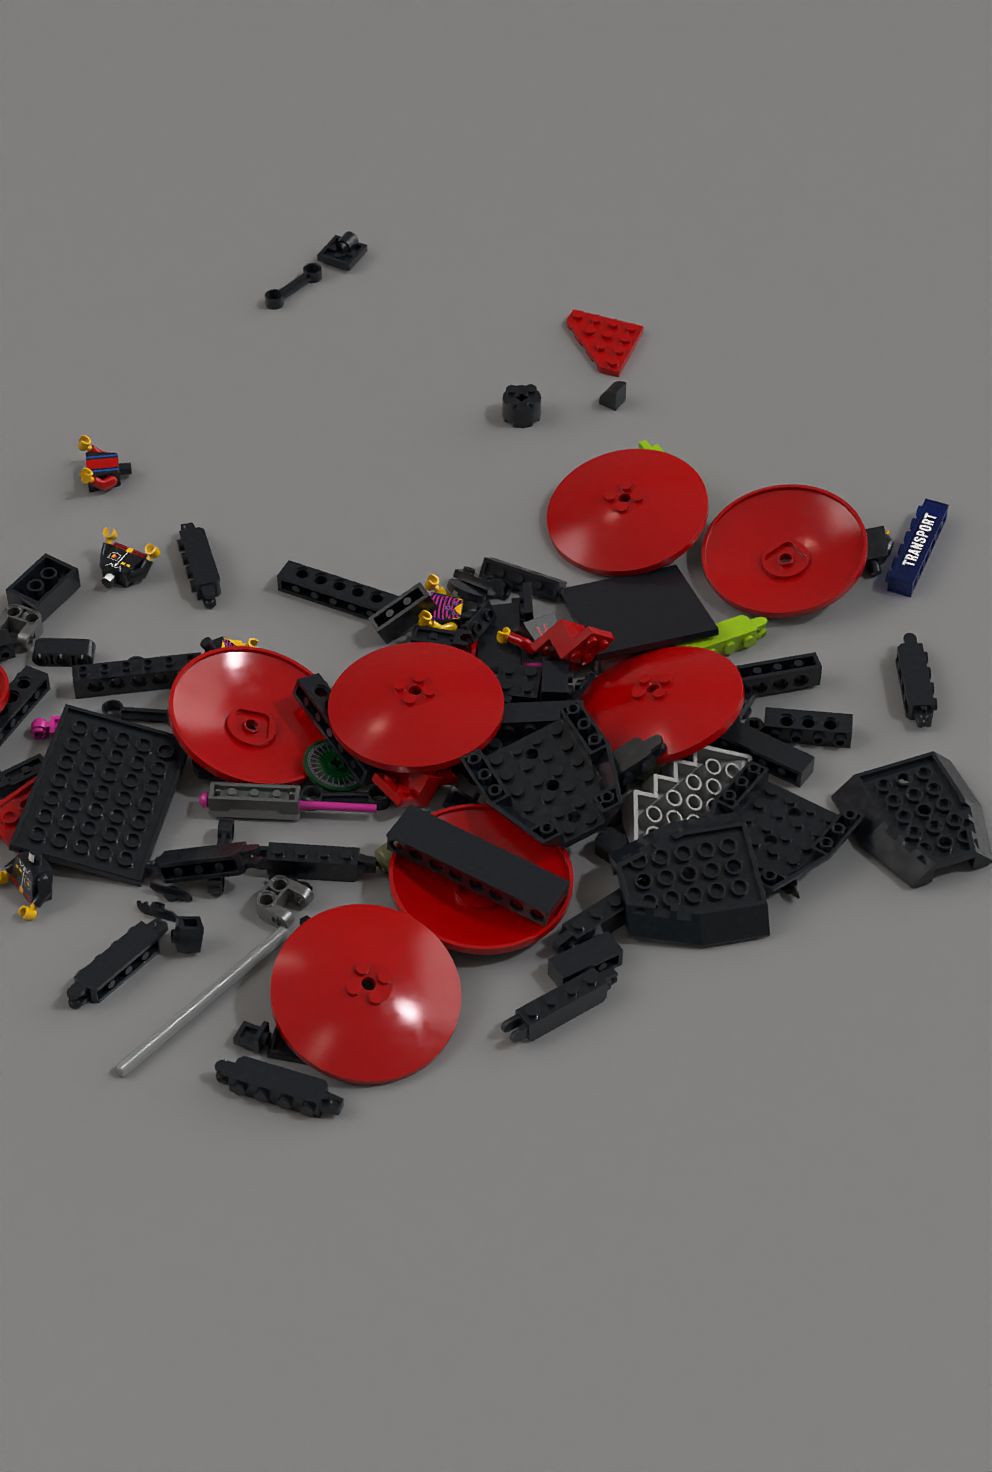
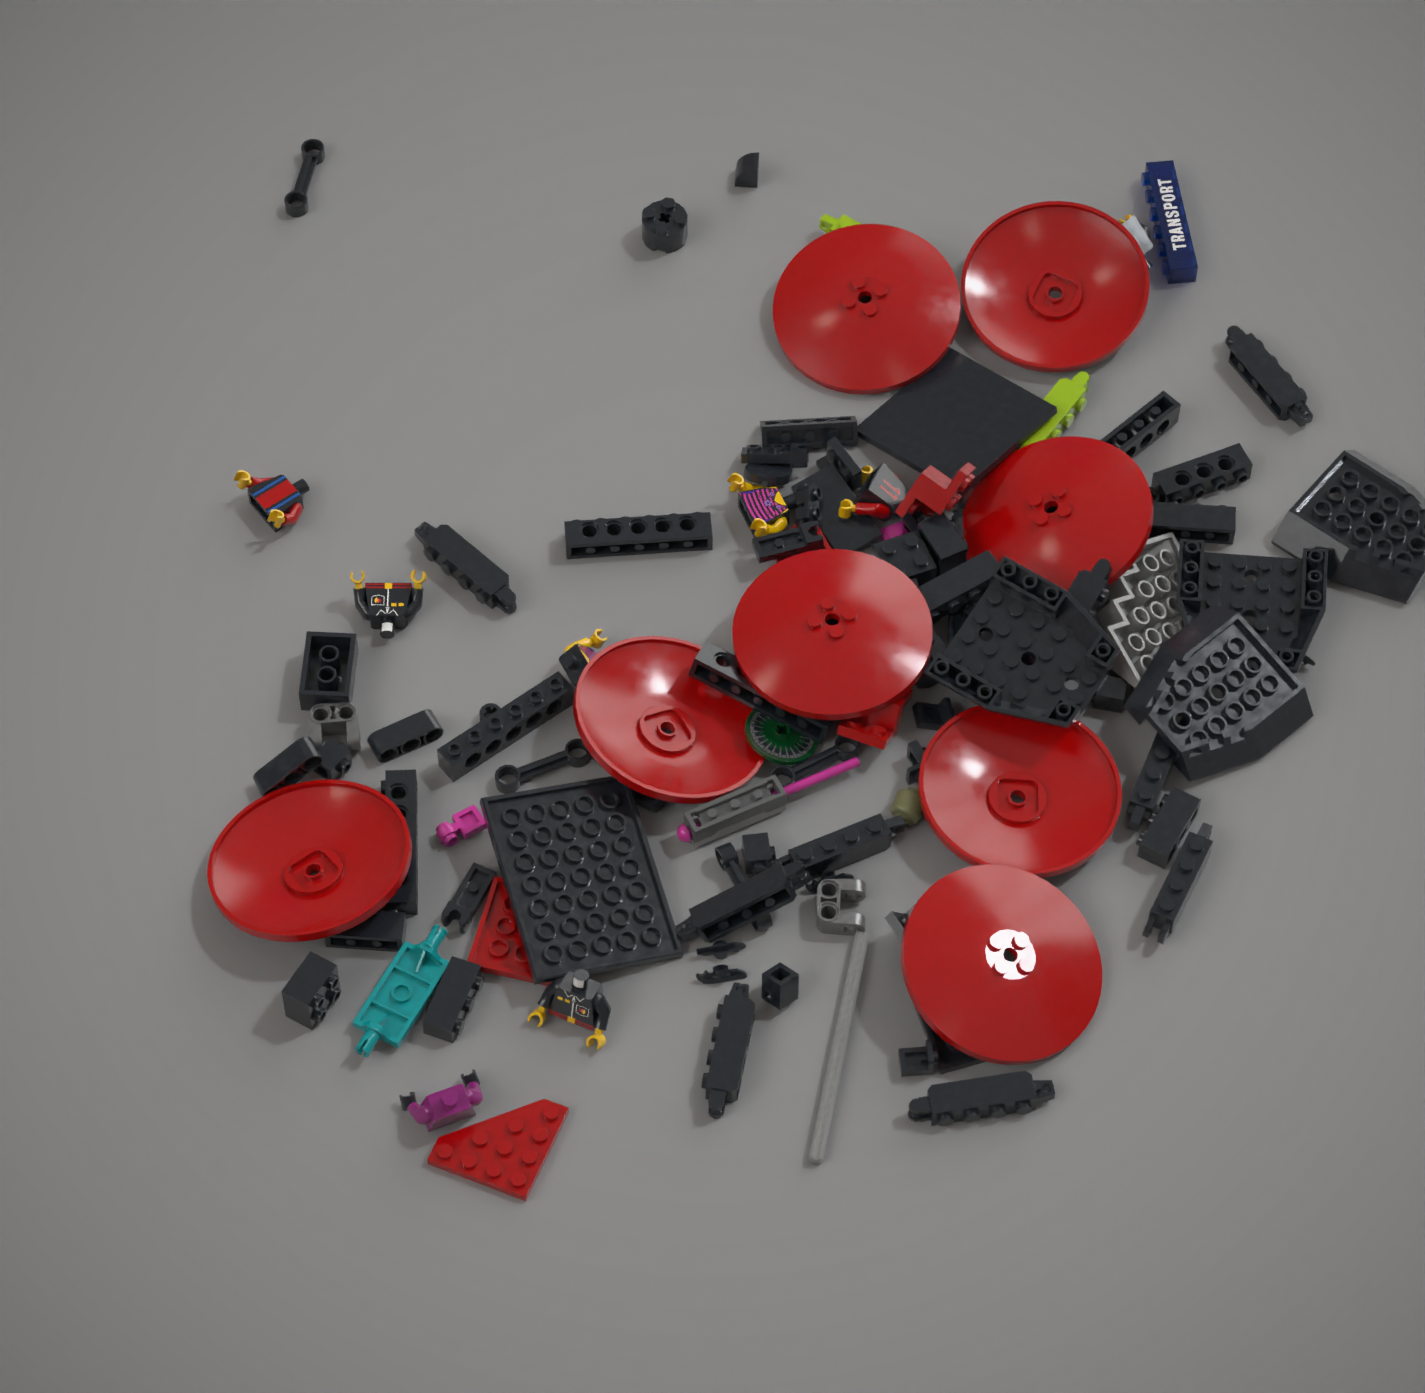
camera: 30 degrees left, 10 degrees up
(251, 832) = (757, 853): none -> black brick
(343, 251) = (327, 110): black plate -> none
(402, 613) = (731, 530): black brick -> none
(477, 861) = (1019, 776): black tile -> none
(605, 339) = (689, 102): red plate -> none

